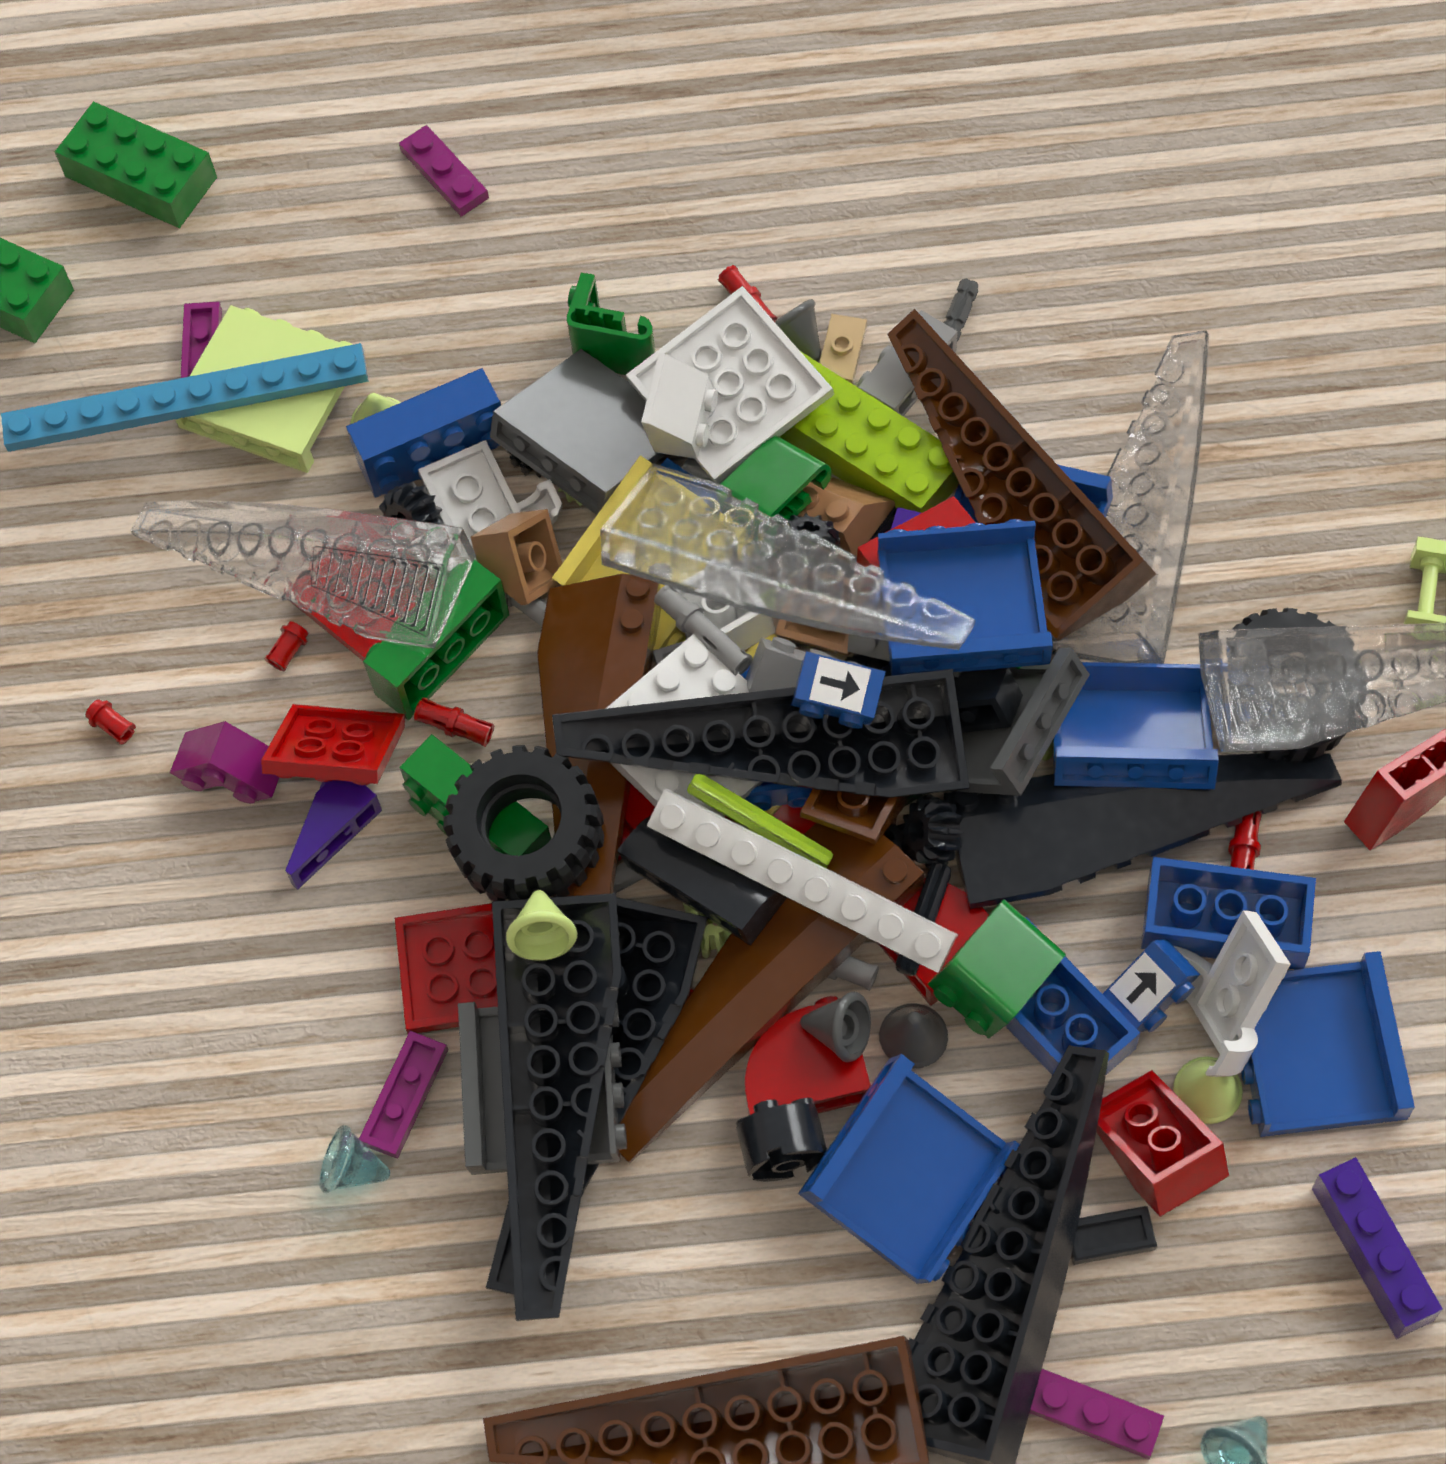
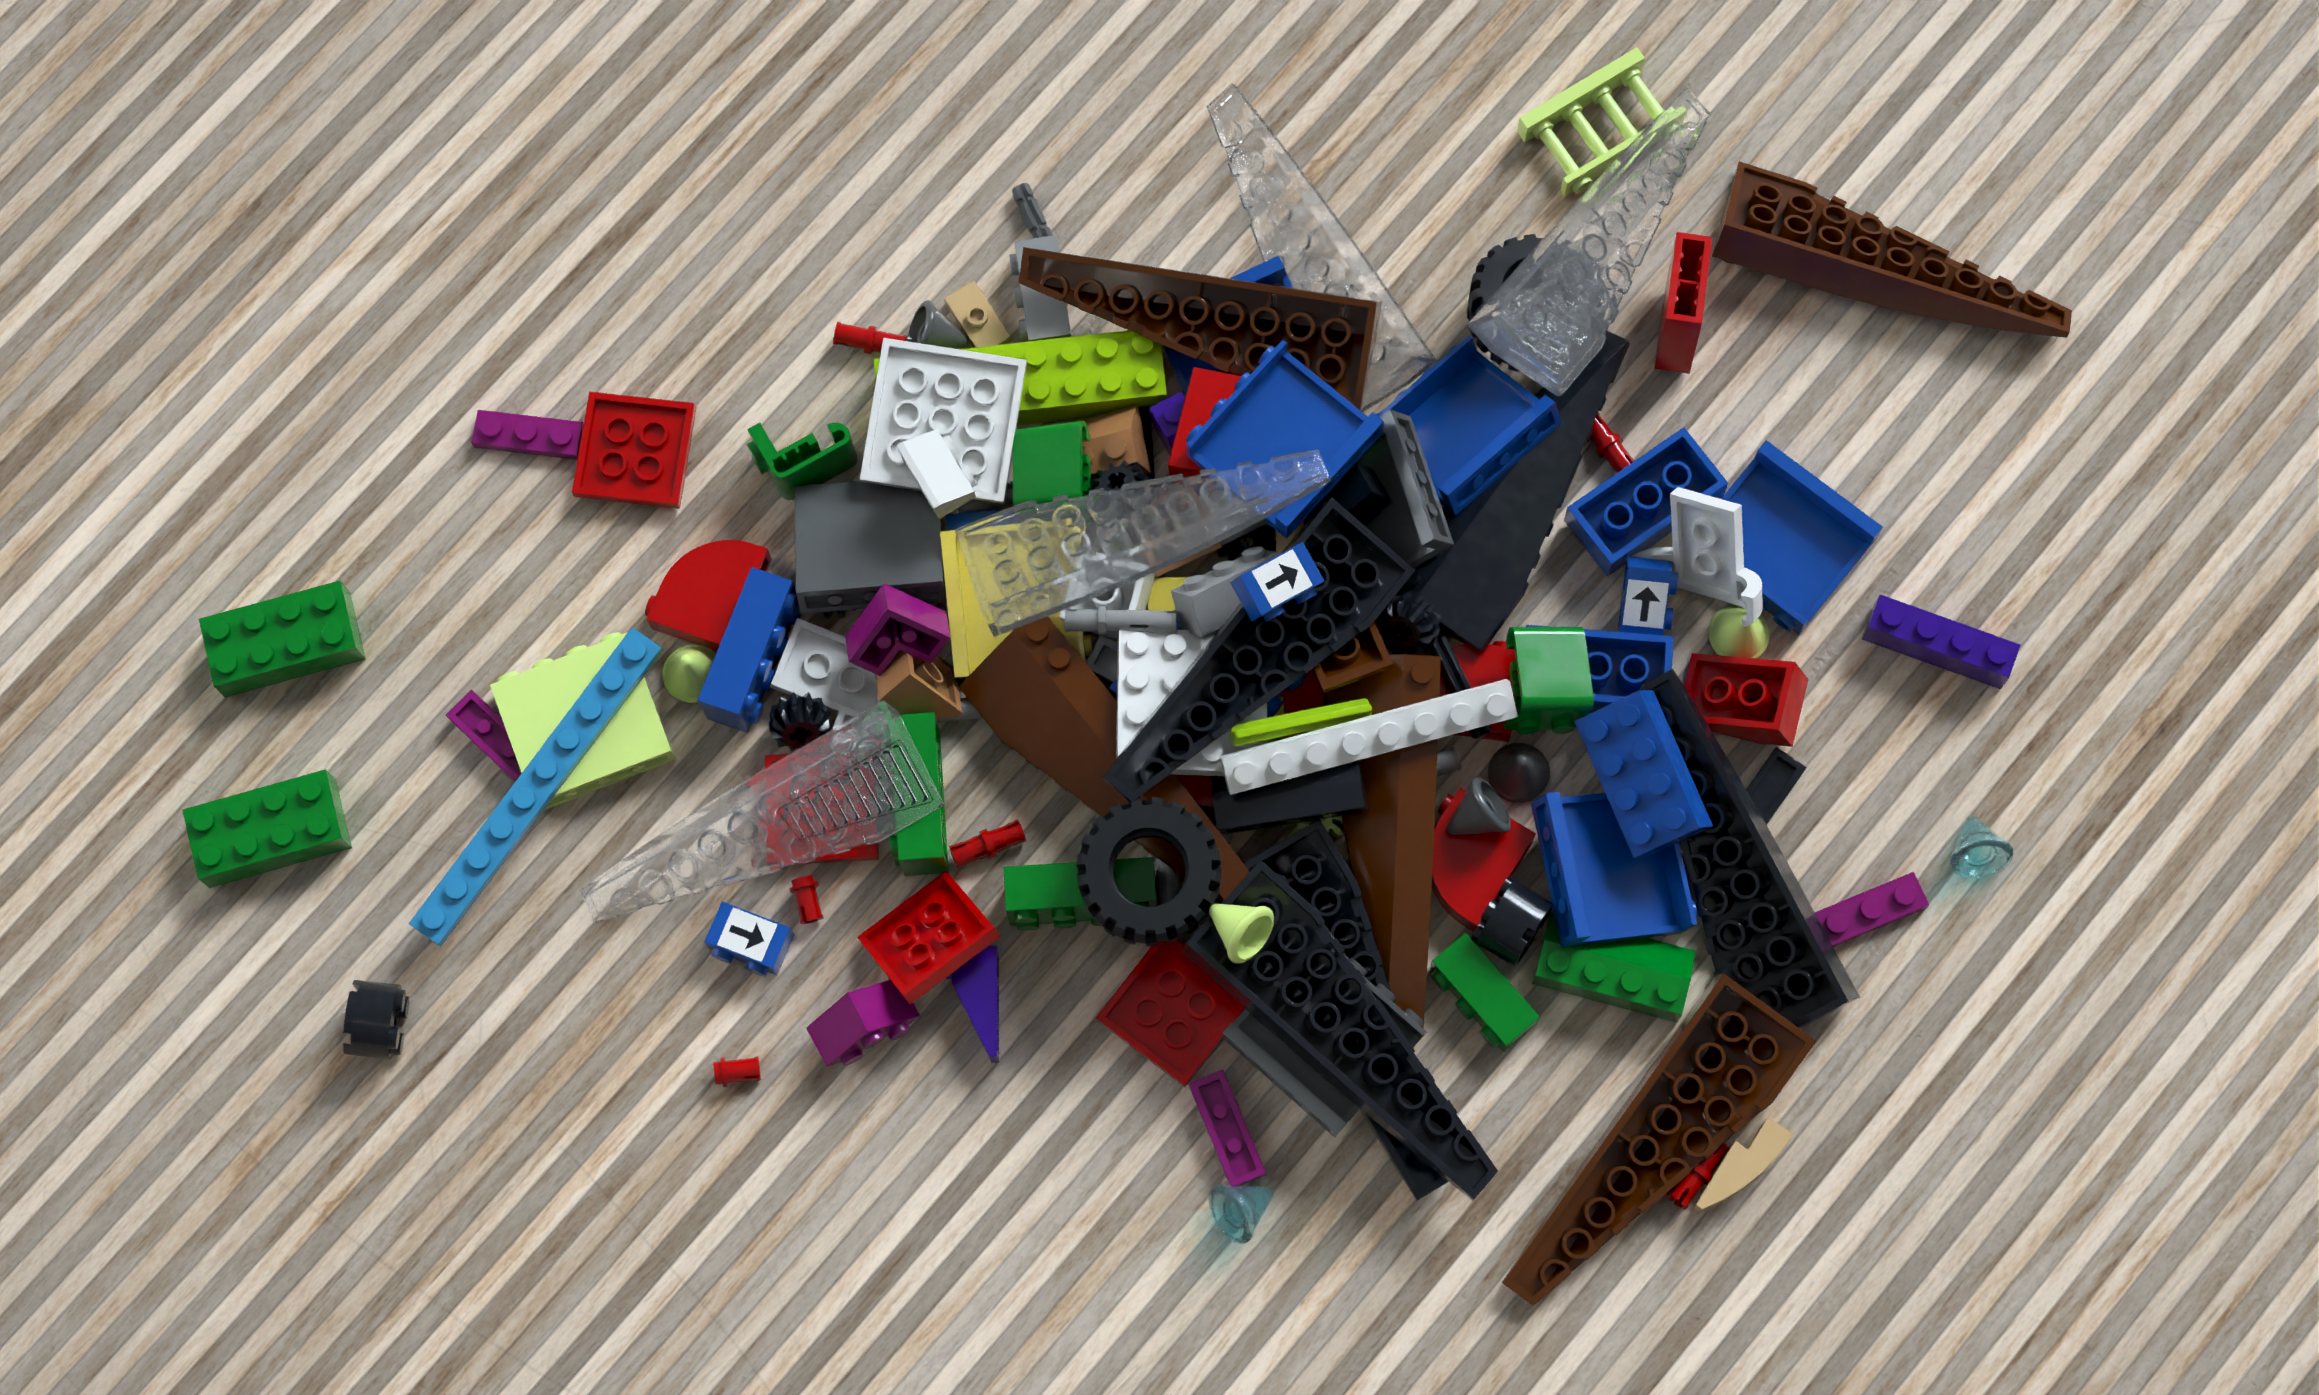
camera: 45 degrees left, 10 degrees up
(216, 635) = (748, 939): none -> brick
(443, 357) = (703, 591): none -> red brick
(502, 237) = (634, 450): none -> red plate
(542, 495) = (893, 624): none -> magenta brick
(705, 1177) = (1483, 993): none -> green brick
(837, 1271) = (1626, 973): none -> green slope
(1001, 1115) = (1643, 773): none -> blue brick

